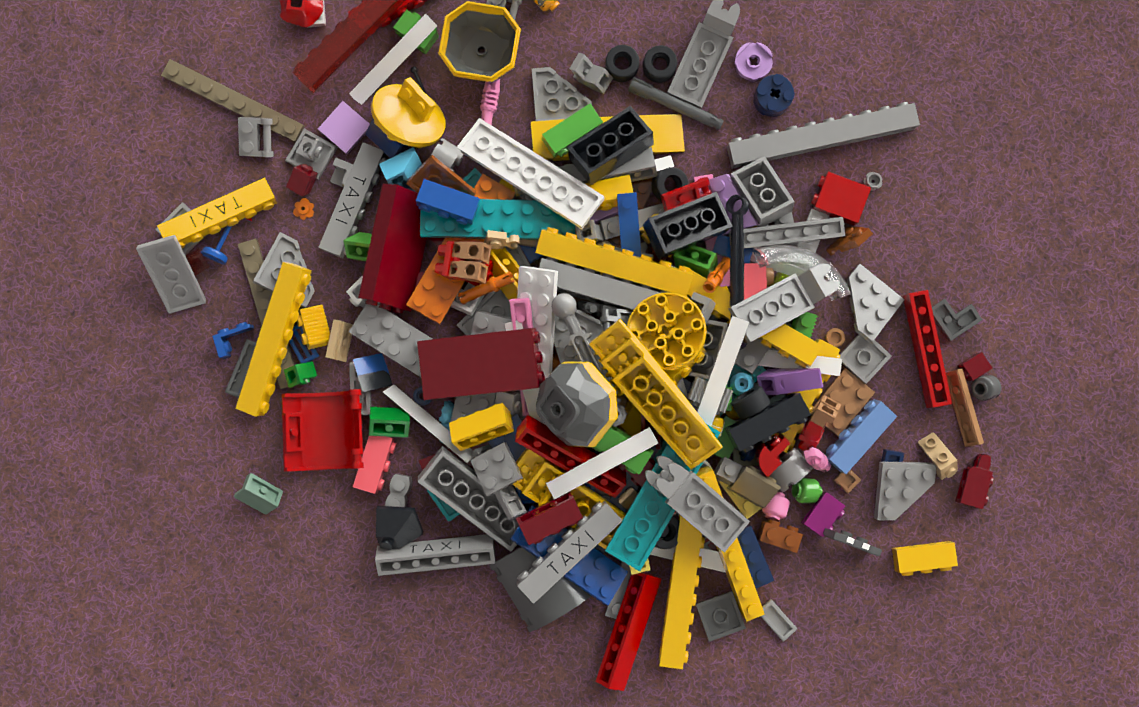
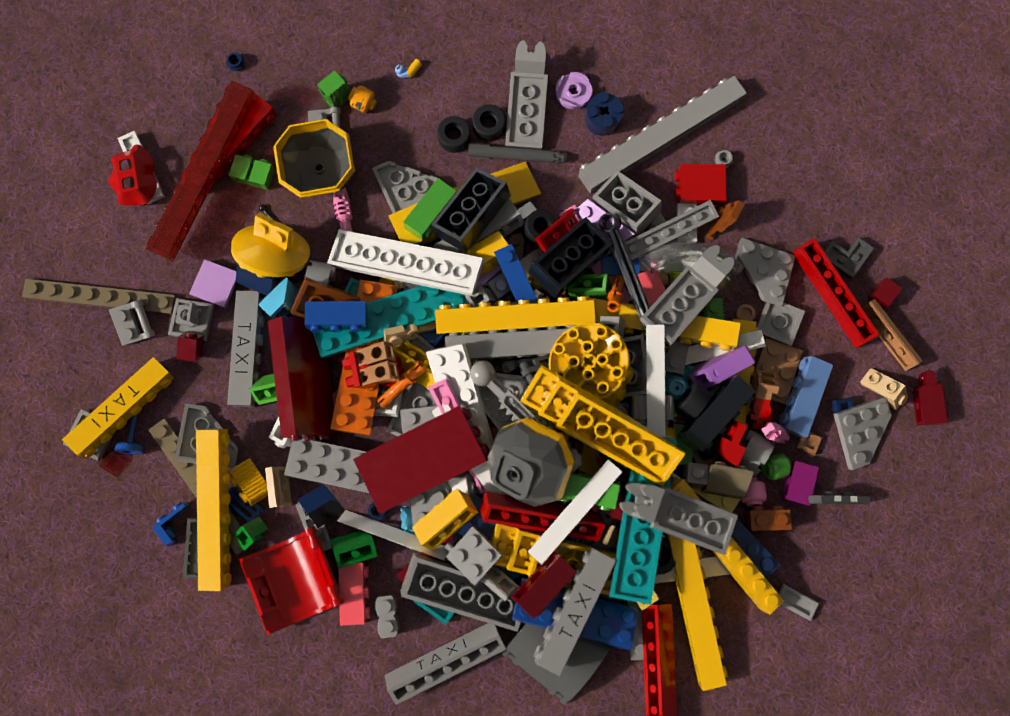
camera: 20 degrees left, 5 degrees down
(171, 274) = (91, 481): light grey plate -> none
(259, 494) = (250, 667): sand green panel -> none
(308, 212) = (206, 374): orange plant -> none
(341, 172) = (225, 323): light grey panel -> none
(393, 59) = (239, 204): white sticker -> none
(396, 526) = (397, 648): black slope -> none
(590, 75) = (428, 155): light grey brick -> none
(720, 616) = (741, 618): dark grey plate -> none
(925, 558) = (911, 489): yellow brick -> none
(986, 387) = (903, 308): dark grey head -> none

